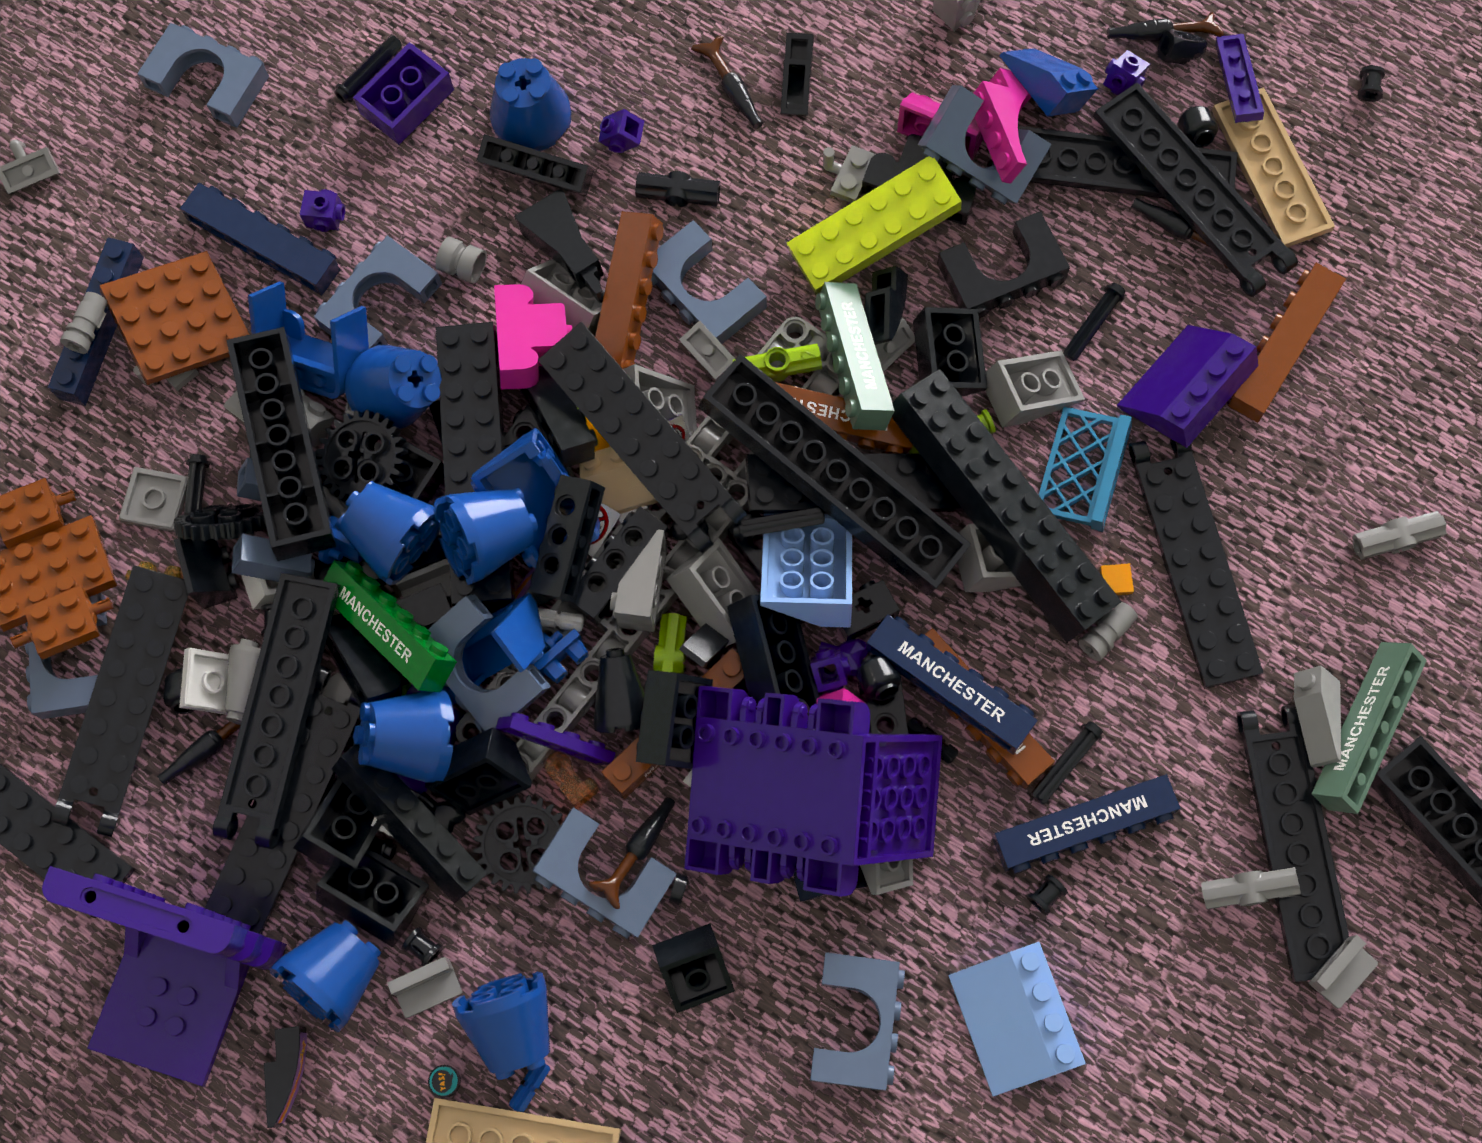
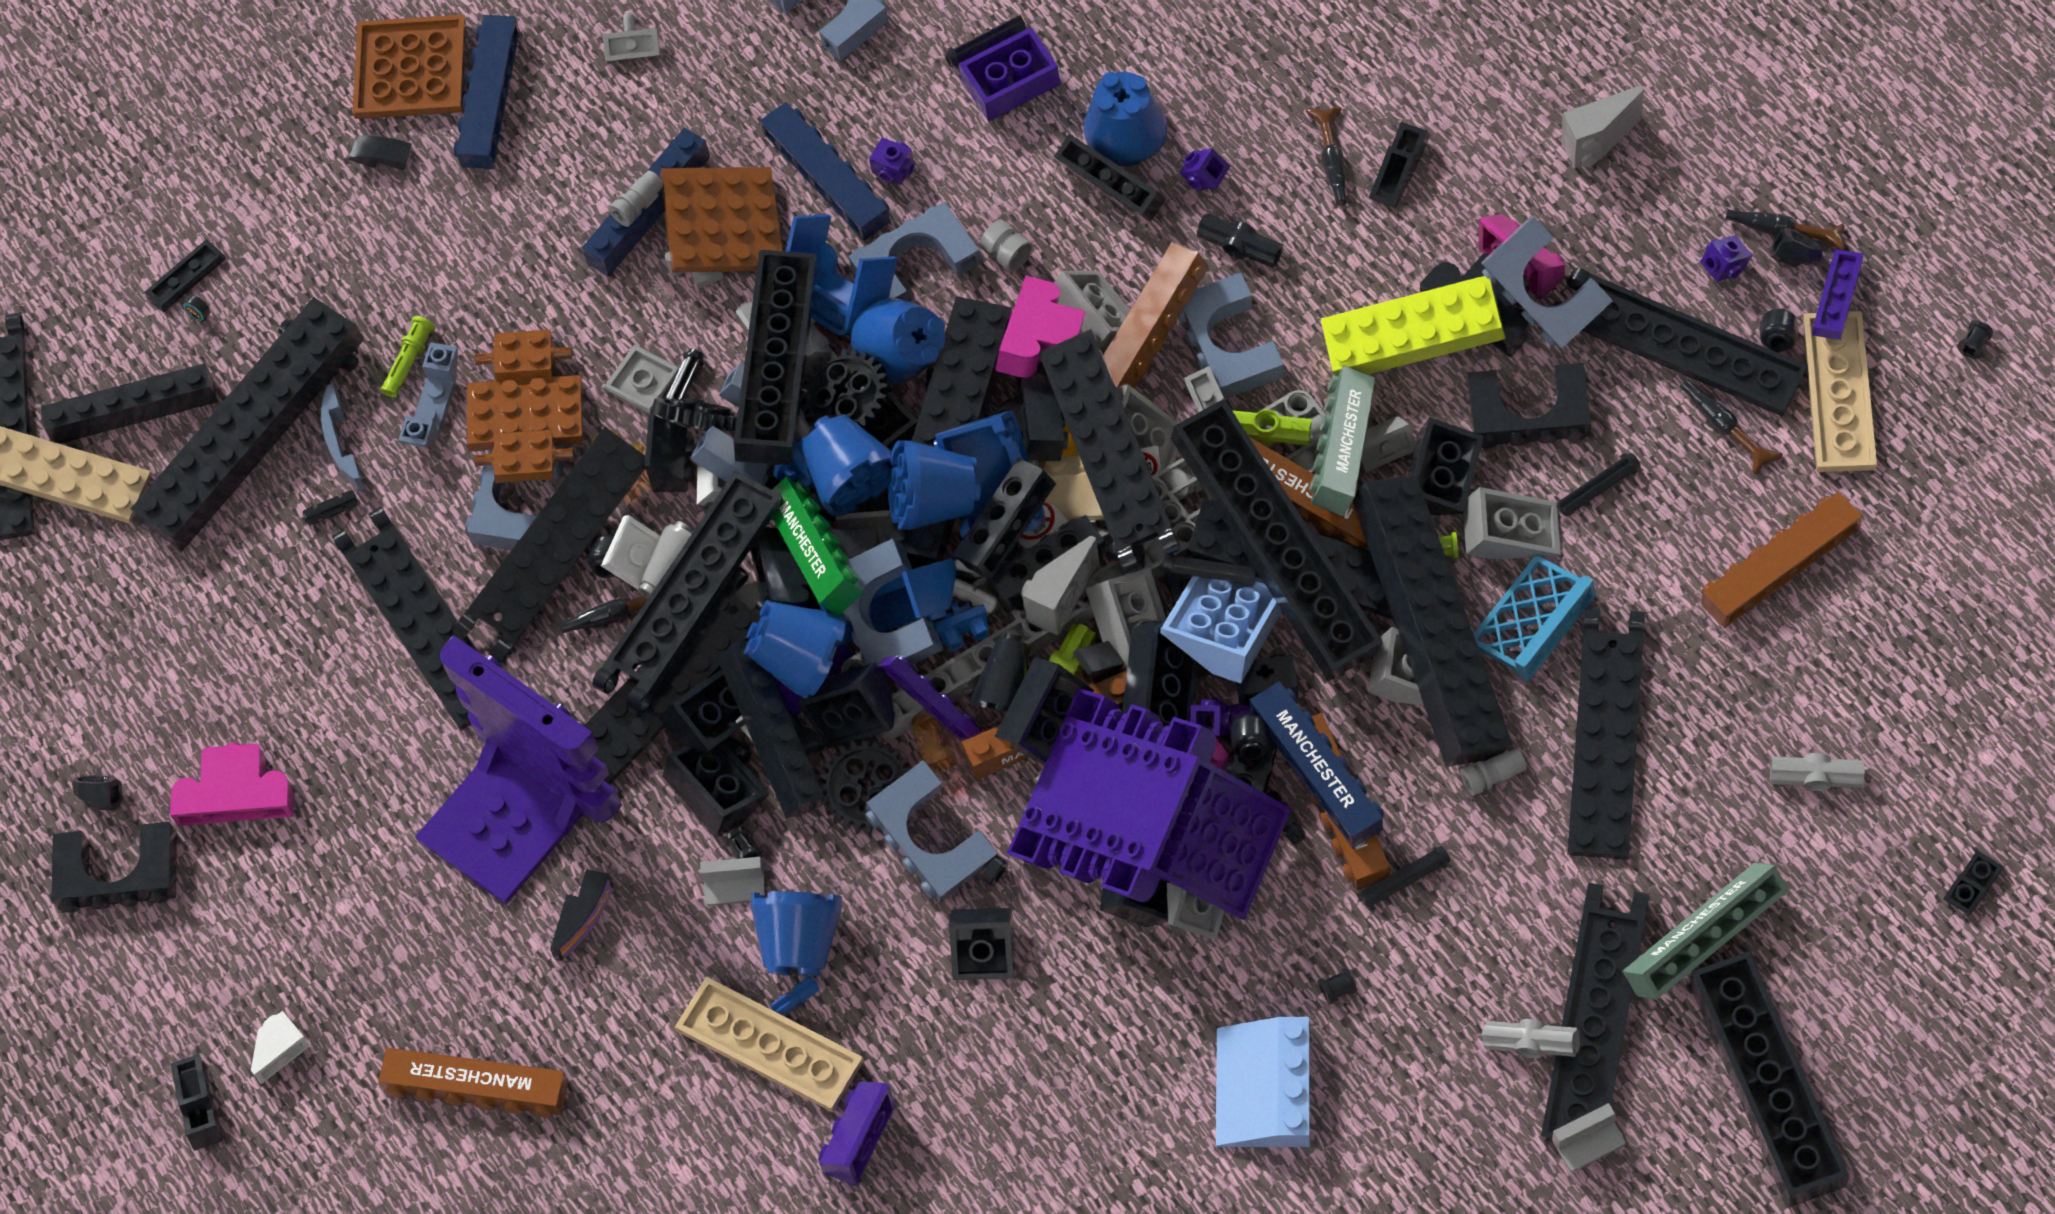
camera: 25 degrees right, 10 degrees down
(329, 973) = (650, 836): blue cone -> none
(444, 1081) = (720, 968): black tile -> none
(555, 232) = (1106, 245): black piece -> none
(636, 849) = (969, 821): piece -> none
(850, 174) = (1411, 274): light grey plate -> none
(879, 982) = (1112, 1078): sand blue arch -> none
(886, 303) = (1397, 405): black slope -> none
(999, 121) = (1571, 254): dark pink arch -> none
(1051, 81) = (1645, 242): blue slope -> none
(1086, 823) = (1399, 935): dark blue brick -> none
(1118, 577) = (1523, 728): light orange tile -> none
(1191, 382) = (1667, 568): dark purple slope -> none
(1194, 187) = (1745, 383): black hinge -> none
(1319, 714) = (1662, 902): light grey slope -> none

